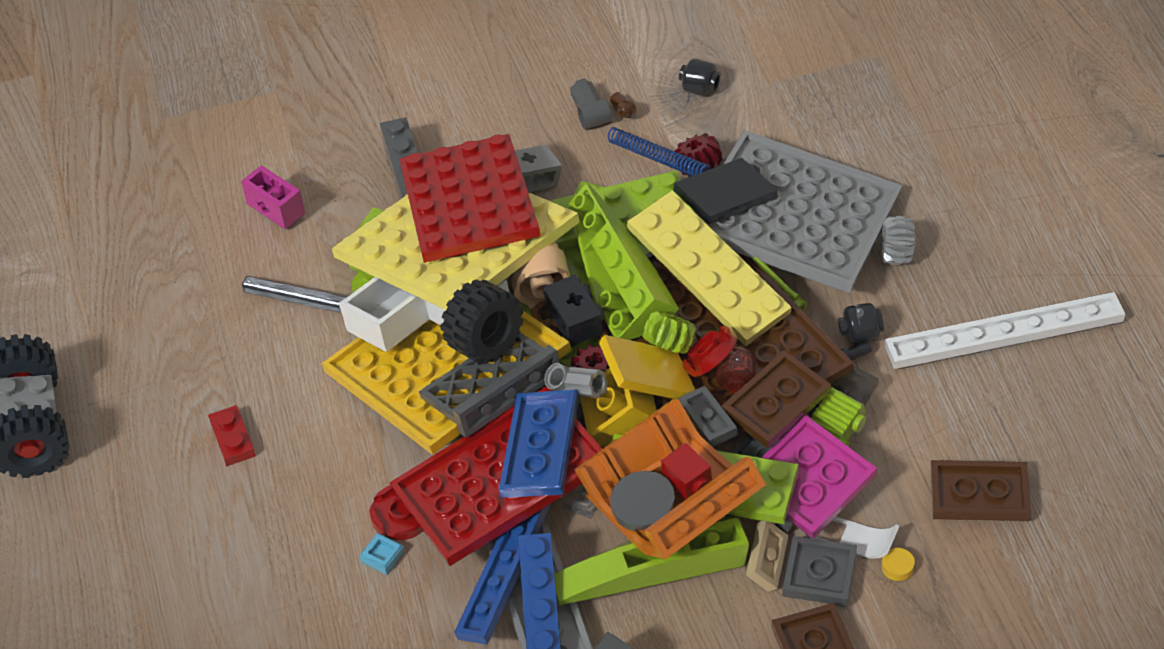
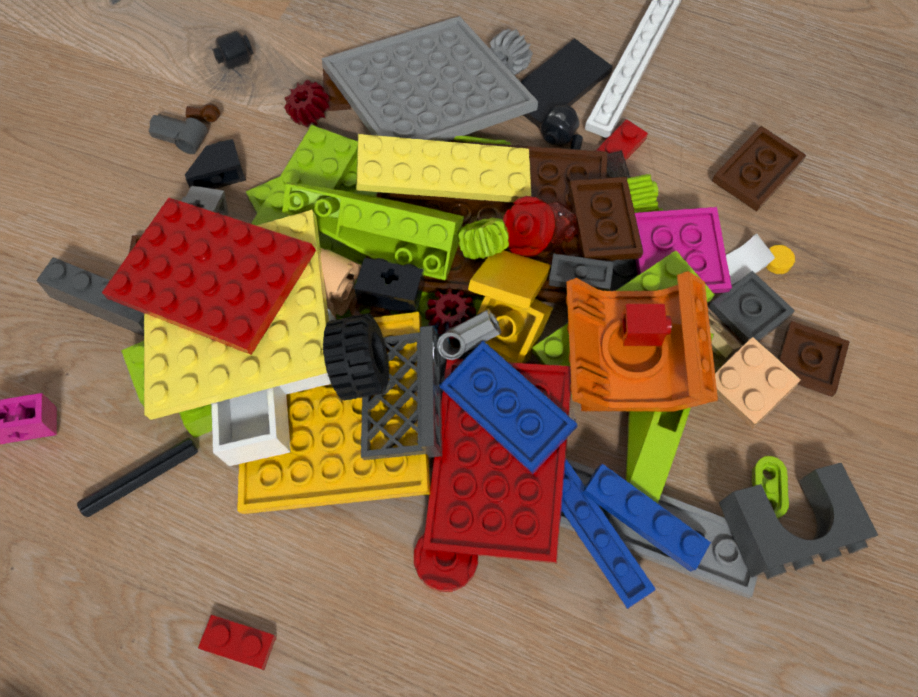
camera: 55 degrees left, 15 degrees up
(382, 553) = (476, 605): medium azure tile -> none
(582, 148) = (216, 166): none -> black slope
(642, 499) = (638, 374): dark grey tile -> none
(663, 149) = (234, 134): blue piece -> none
(725, 190) = (379, 106): black tile -> none
(736, 605) = (754, 382): none -> light nougat brick
(899, 381) = (626, 137): none -> red plate
(917, 296) = (564, 78): none -> black tile

